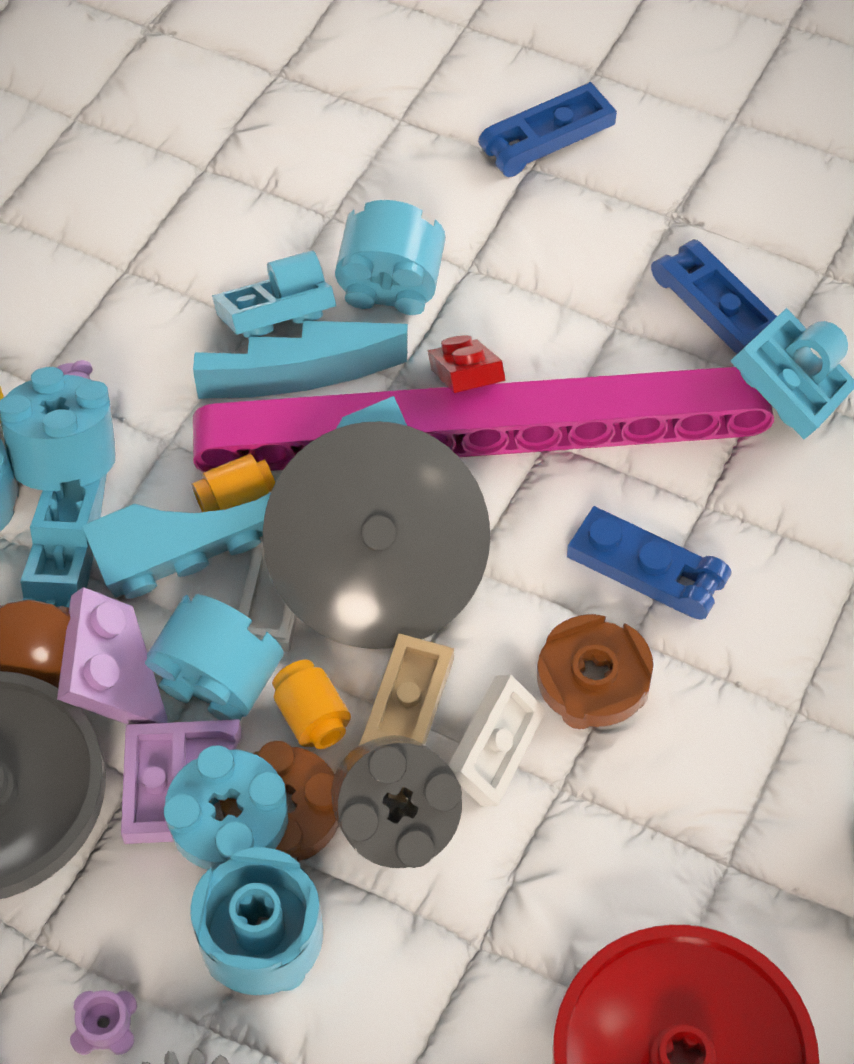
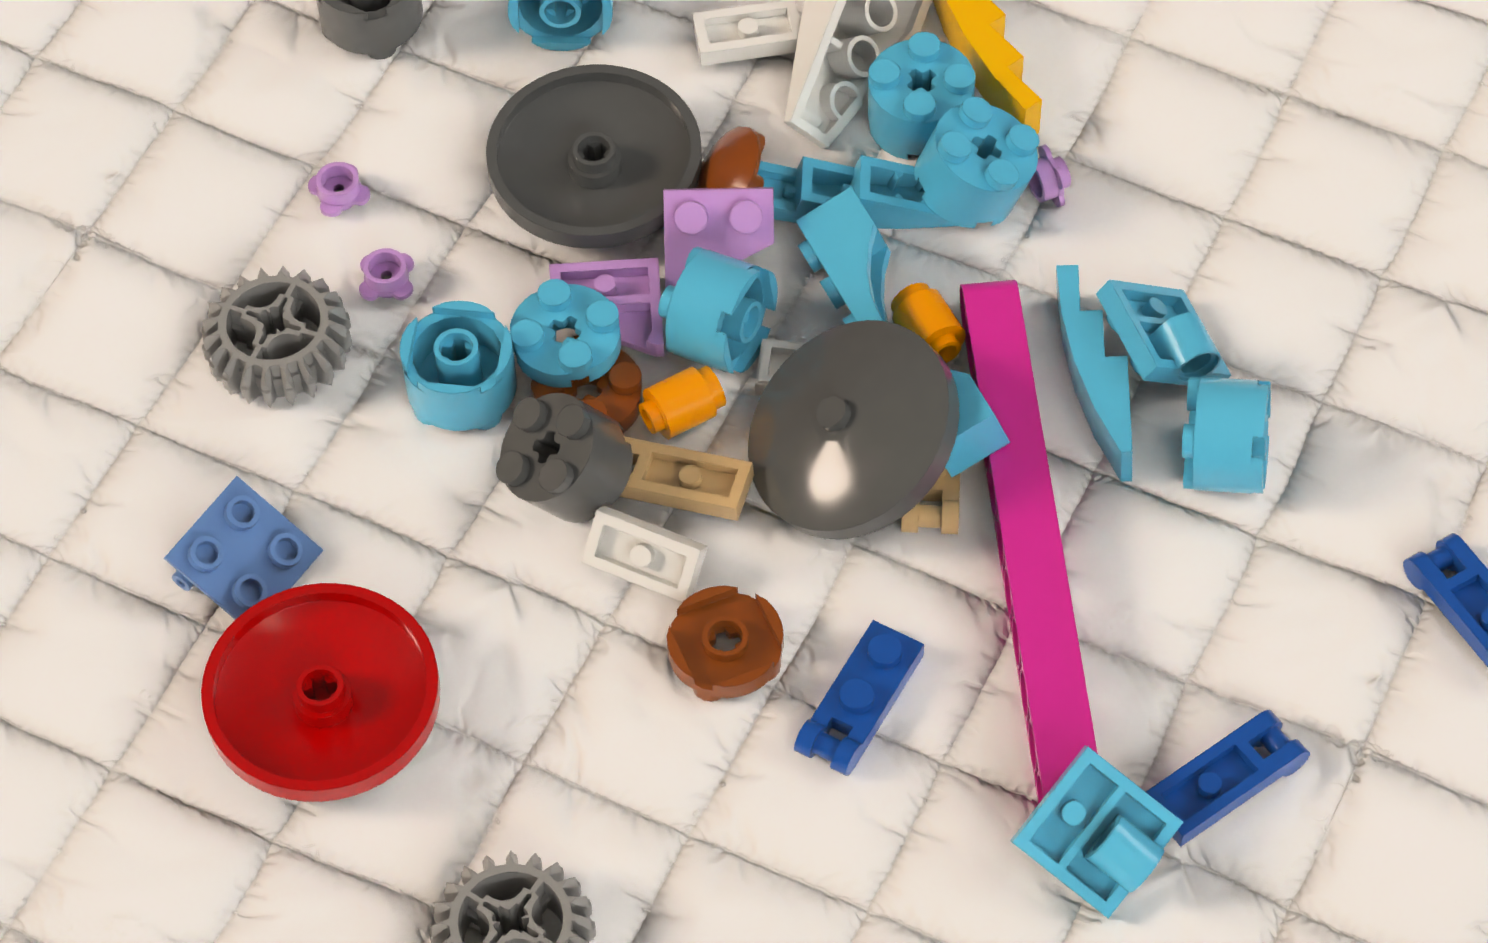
camera: 90 degrees right, 0 degrees up
(465, 364) = (1088, 513): red plate -> none

